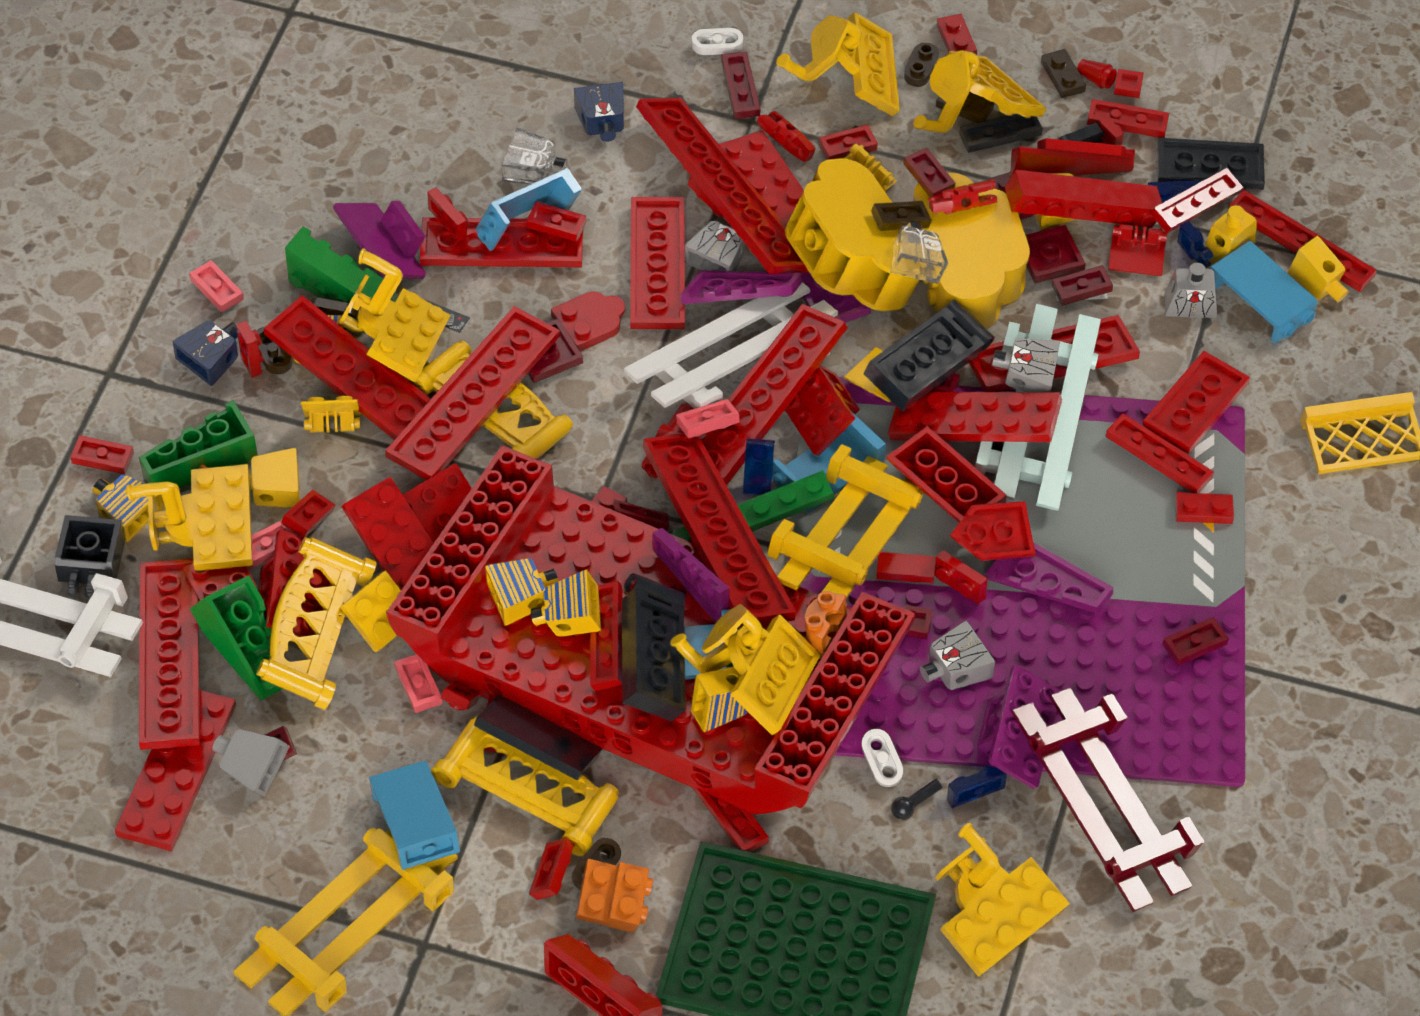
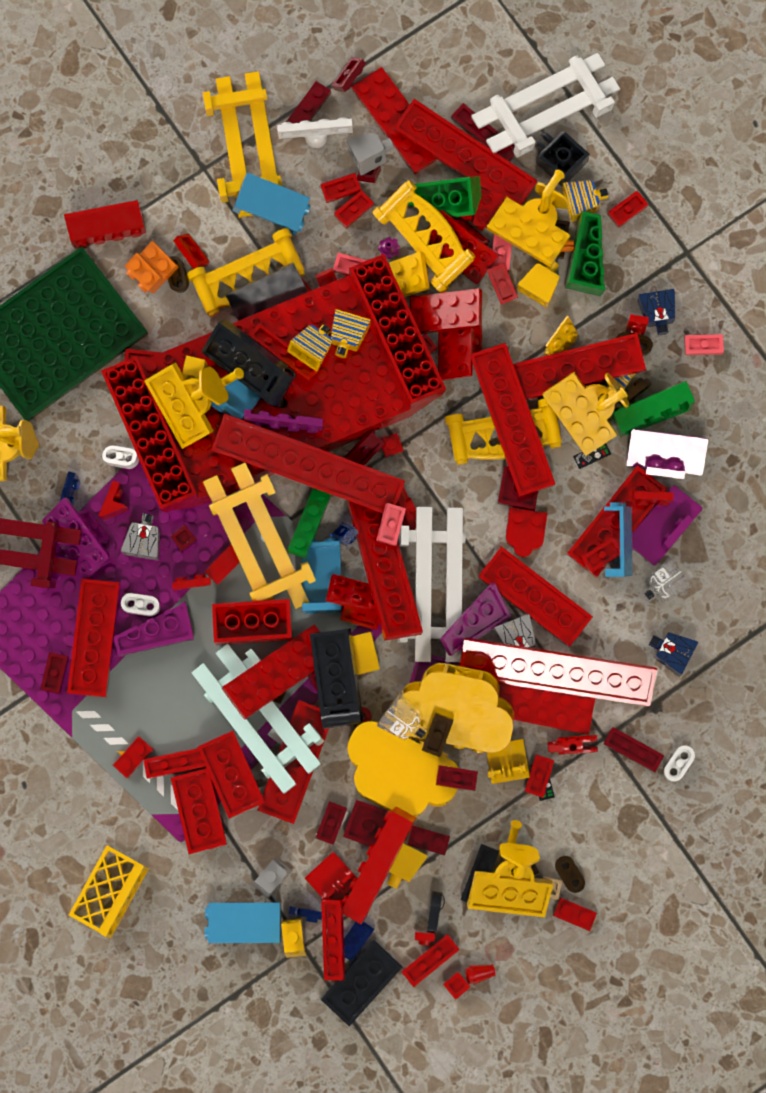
camera: 135 degrees right, 25 degrees up
(115, 690) = (463, 118): none -> dark red plate
(156, 857) = (349, 74): none -> dark red plate
(240, 878) = (310, 103): none -> dark red plate
(272, 831) = (315, 132): none -> white plate
(323, 764) = (340, 187): none -> red plate
(340, 732) = (353, 209): none -> red plate
(360, 661) = (389, 247): none -> magenta plant
(467, 184) = (664, 526): none -> magenta bracket
(822, 617) = (197, 456): orange cylinder -> none
(862, 50) = (591, 834): yellow plate -> none
(904, 807) = (89, 450): black bar -> none
(950, 721) = (110, 506): none -> red slope
(963, 198) = (423, 781): red hinge -> none
(996, 531) = (195, 617): red tile -> none
(1029, 364) = (280, 721): light grey torso -> none
(1036, 613) = (141, 604): none -> white plate
(1063, 73) = (497, 955): dark brown plate -> none
(1072, 157) = (423, 894): red wedge -> none
(1117, 631) = (93, 638): none -> red plate
(1128, 390) = (231, 774): none -> red plate
(1295, 235) = (262, 981): red plate -> none
(1318, 271) = (232, 964): yellow torso -> none

